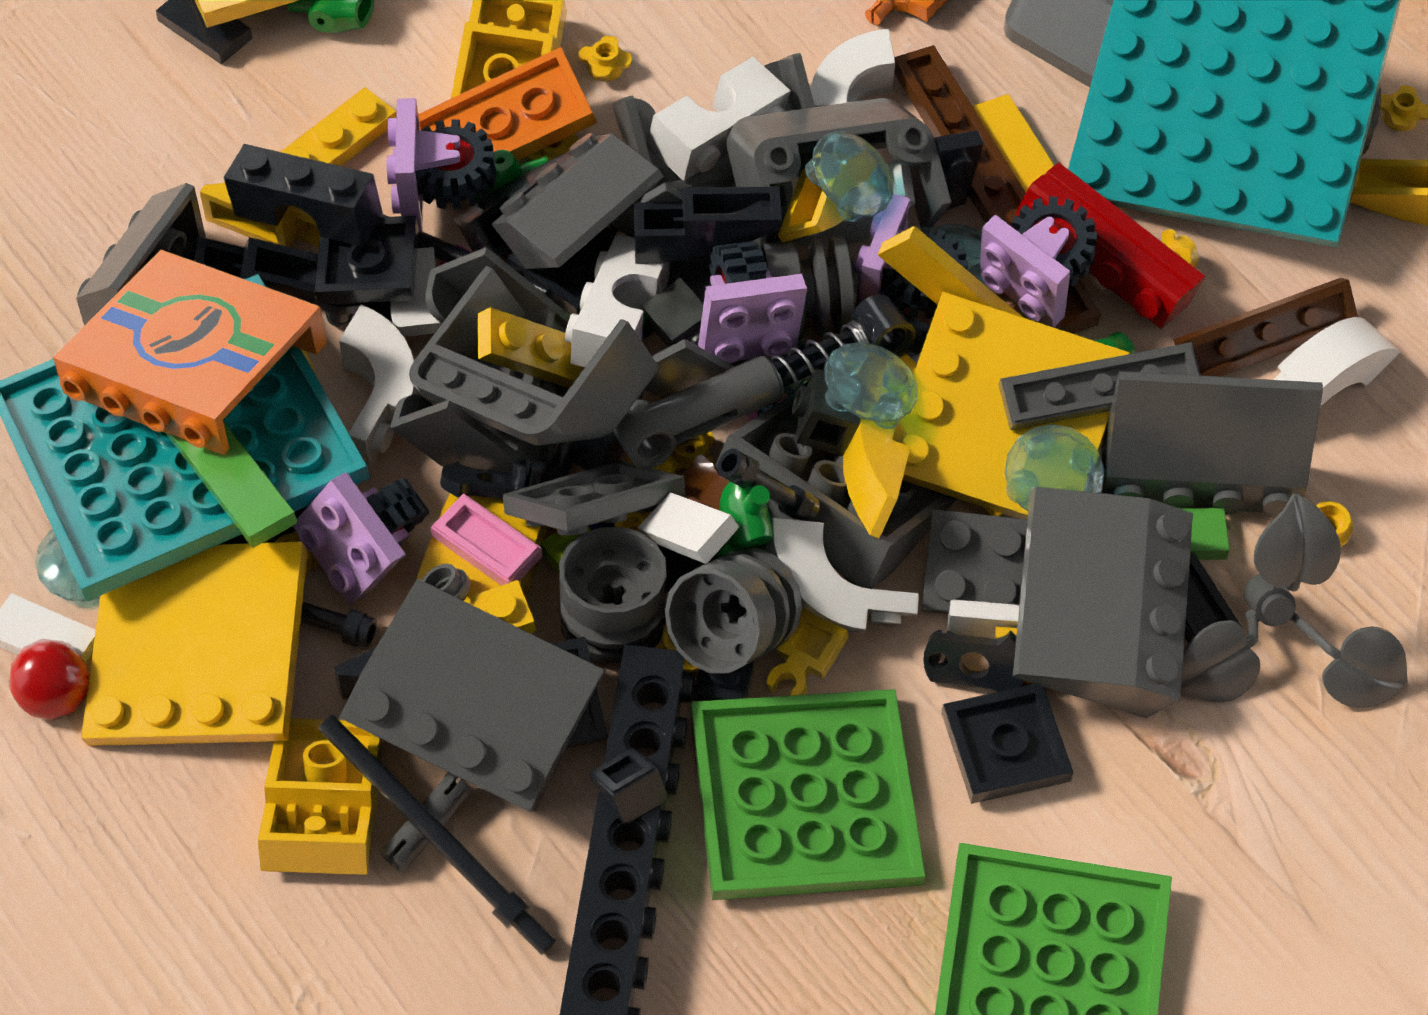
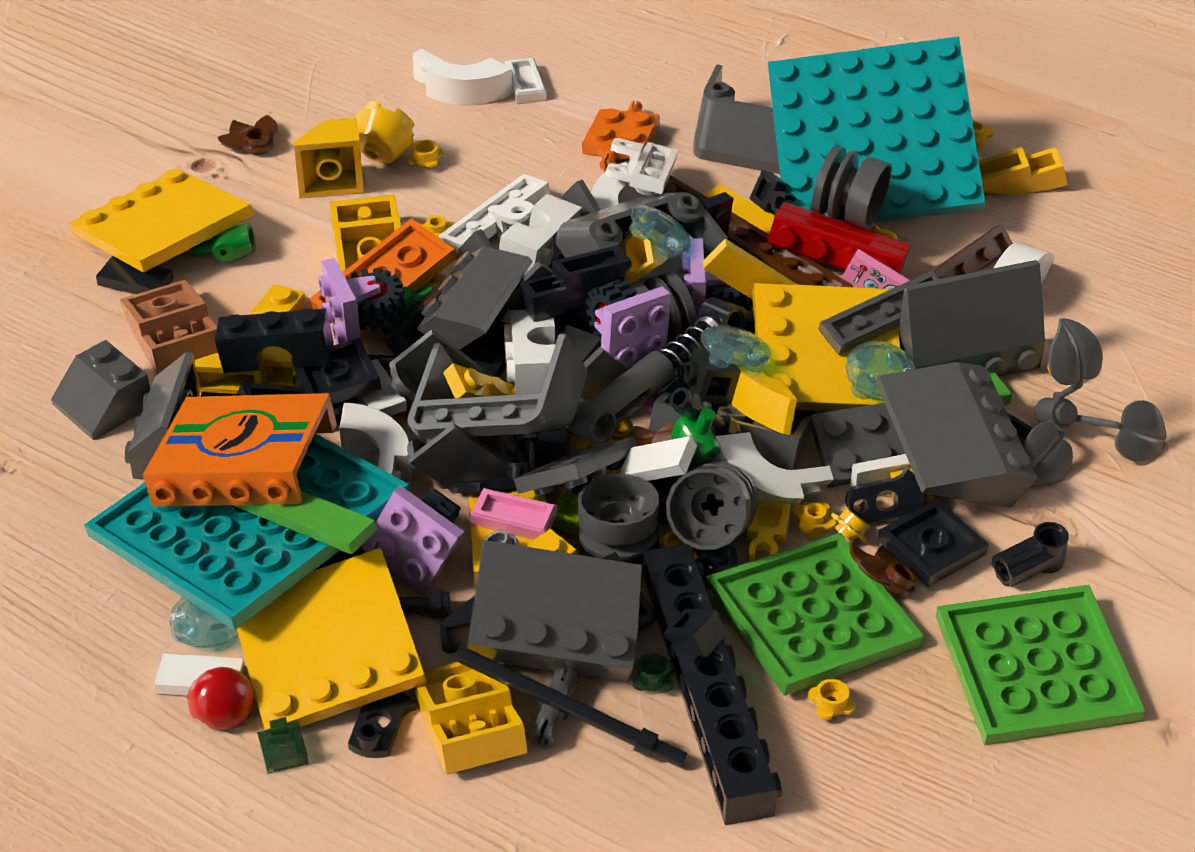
camera: 20 degrees left, 15 degrees down
(89, 189) = (101, 390): none -> dark grey slope
(94, 766) = (282, 746): none -> clear green tile
(211, 111) = (170, 323): none -> nougat slope
(217, 792) = (368, 736): none -> black piece
(567, 801) = (653, 673): none -> clear green plate
(691, 60) = (499, 212): none -> white plate
(770, 912) = (831, 699): none -> yellow plate
(875, 668) = (814, 519): none -> yellow plate
(899, 54) = (646, 169): none -> white plate
(914, 684) = (851, 525): none -> yellow plate
(921, 764) = (886, 570): none -> reddish brown plate
(1038, 256) = (804, 248): lavender plate -> none
(1060, 132) = (770, 192): none -> black plate
(1118, 808) = (1039, 553): none -> black piece
(1132, 315) = (869, 273): none -> bright pink tile
(1152, 172) = (844, 185): none -> dark grey wheel

